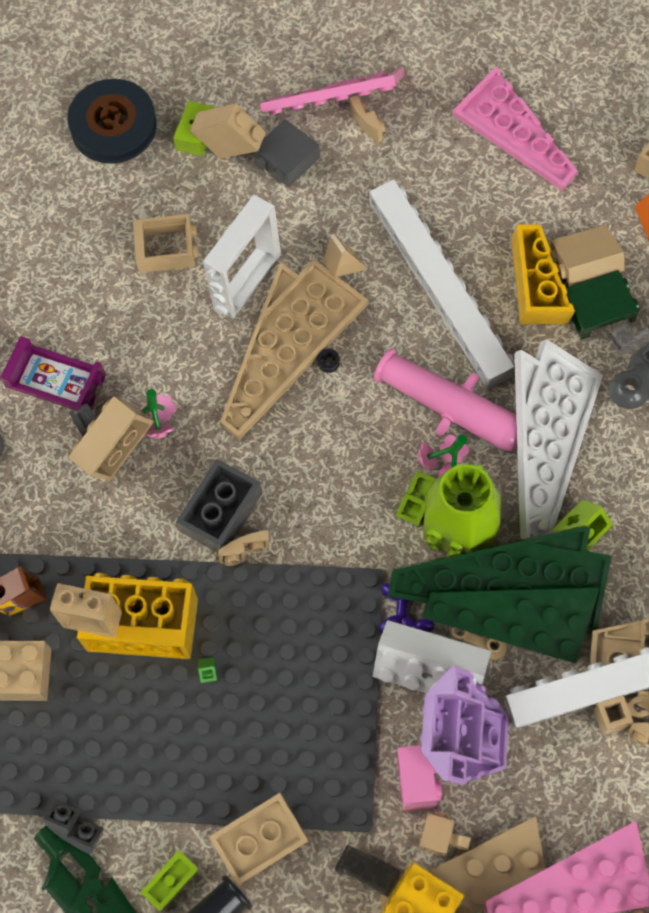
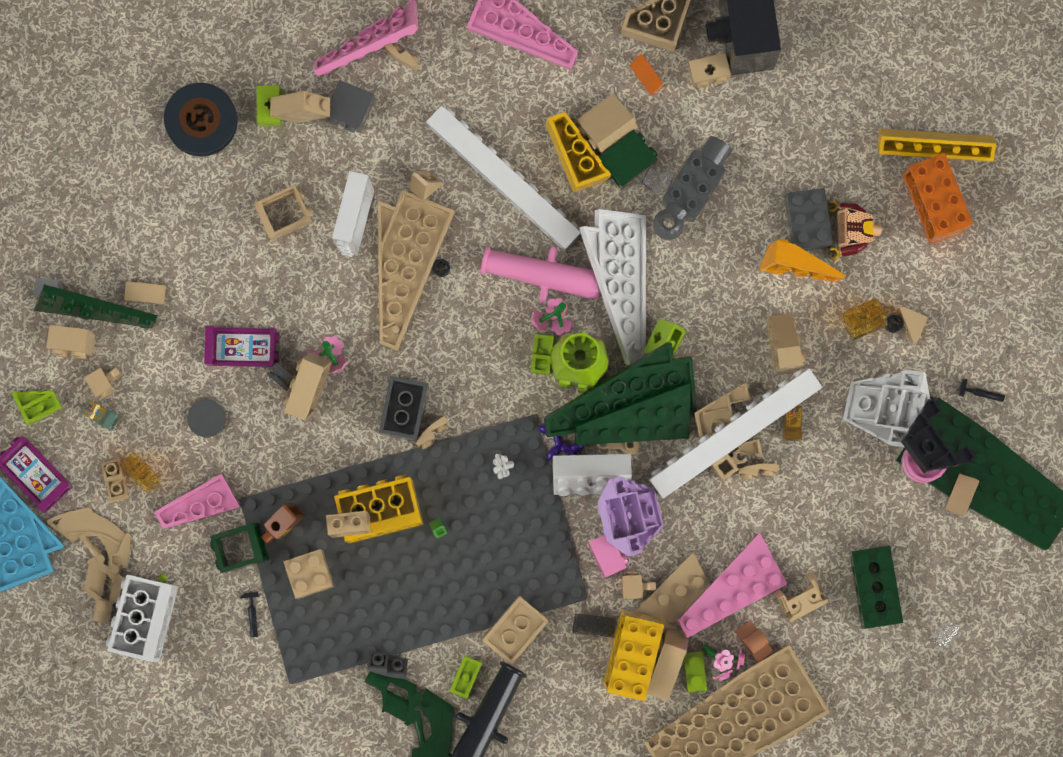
camera: 20 degrees left, 15 degrees up
(318, 616) = (502, 466): none -> white plant

